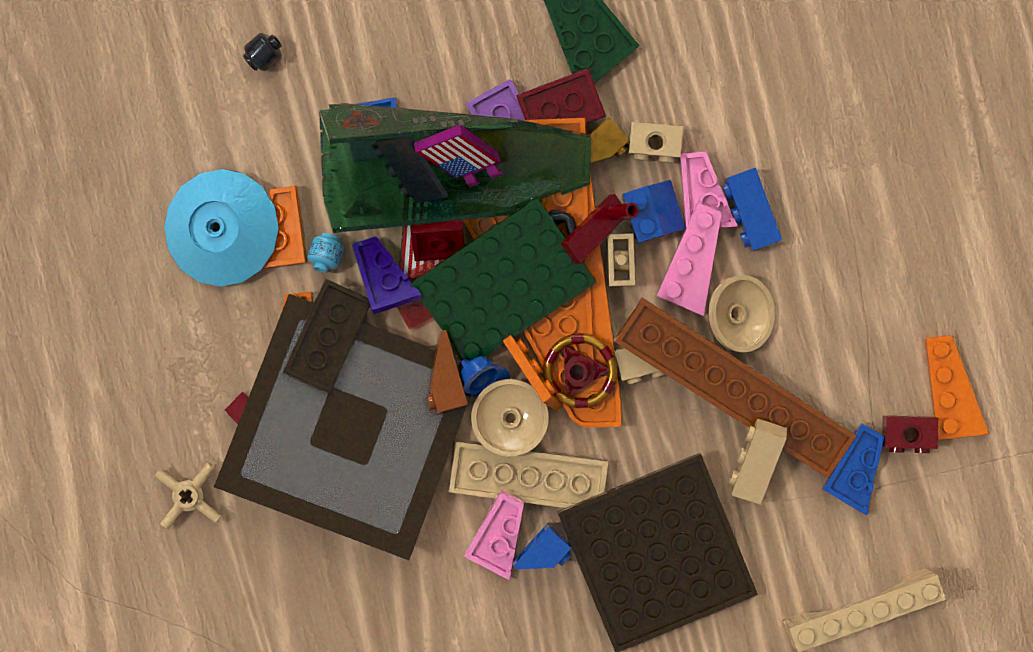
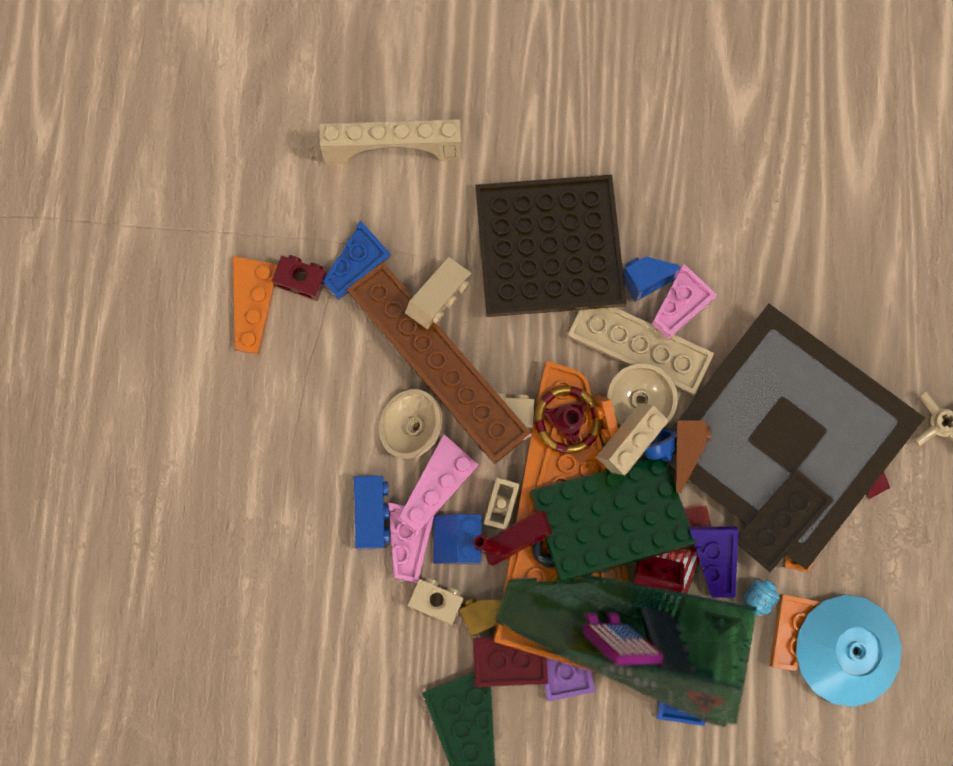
camera: 160 degrees left, 10 degrees down
(508, 368) = (632, 439): none -> tan brick

